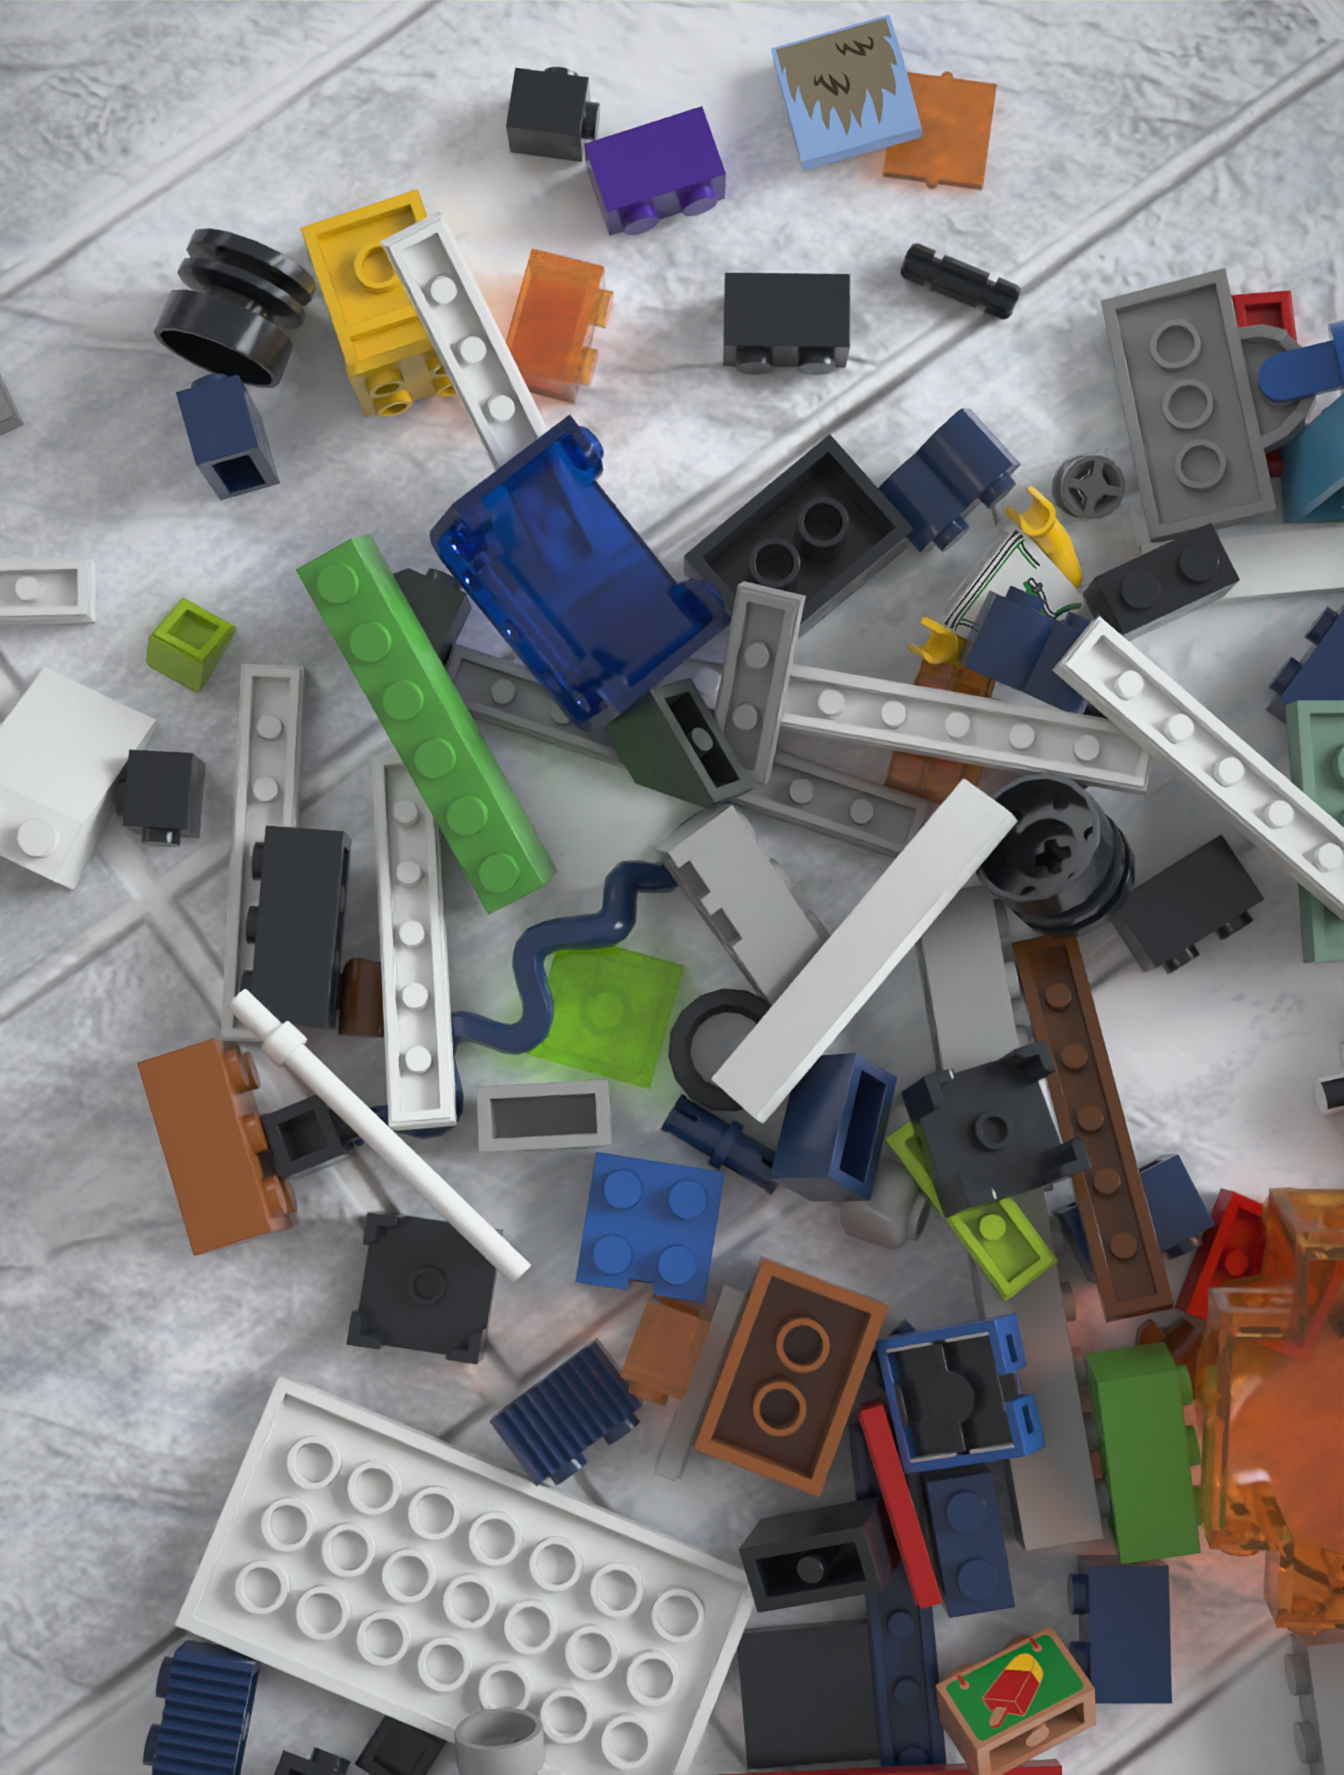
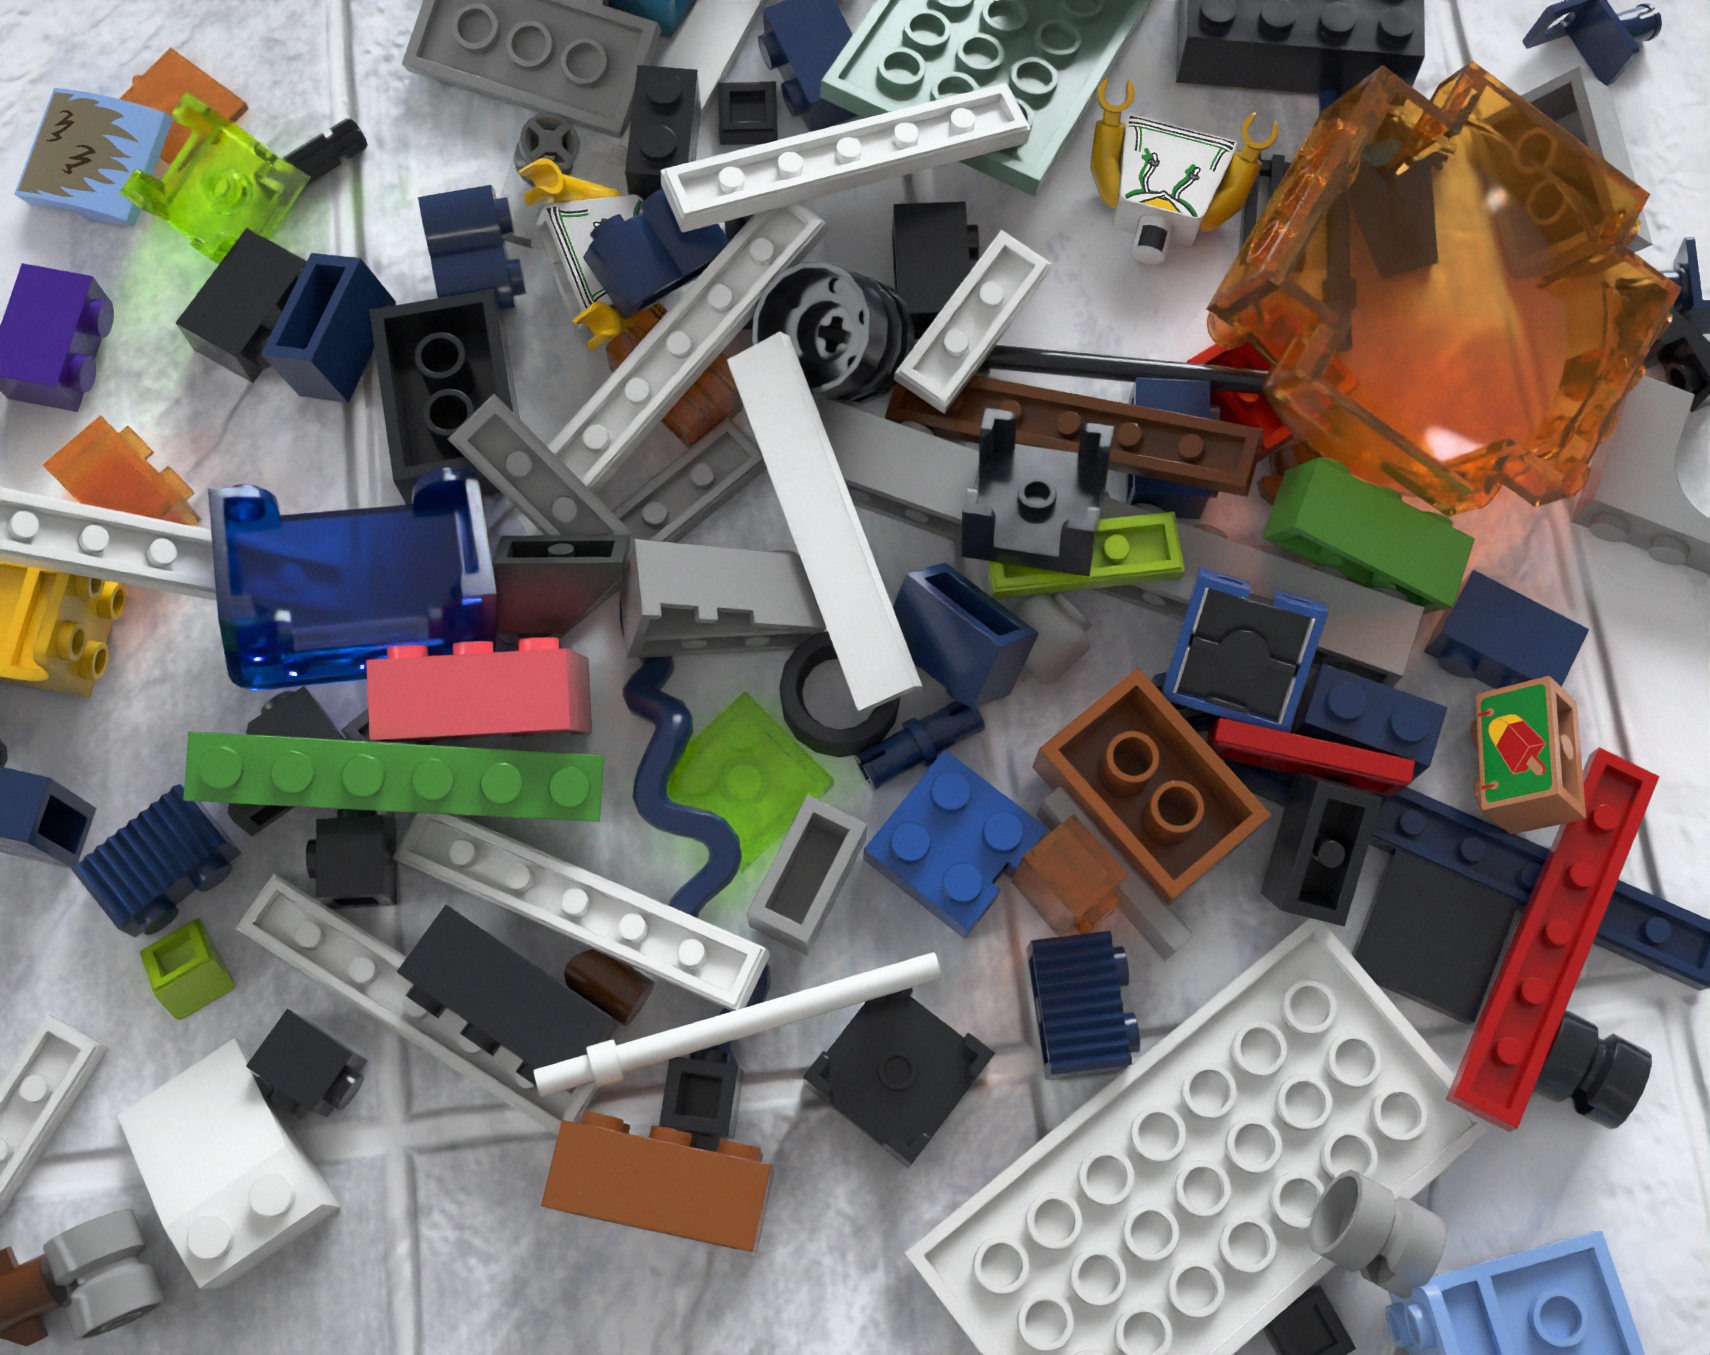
camera: 65 degrees left, 10 degrees down
(253, 566) = (157, 863): none -> dark blue brick
(344, 728) = (353, 860): none -> black brick
(538, 748) = (478, 692): none -> coral wedge
(800, 400) = (327, 327): none -> dark blue brick
(881, 220) = (218, 182): none -> clear neon green panel
(1128, 996) = (1120, 368): none -> black bar
(1143, 974) = (972, 322): none -> white tile
(1248, 640) = (747, 113): none -> black tile

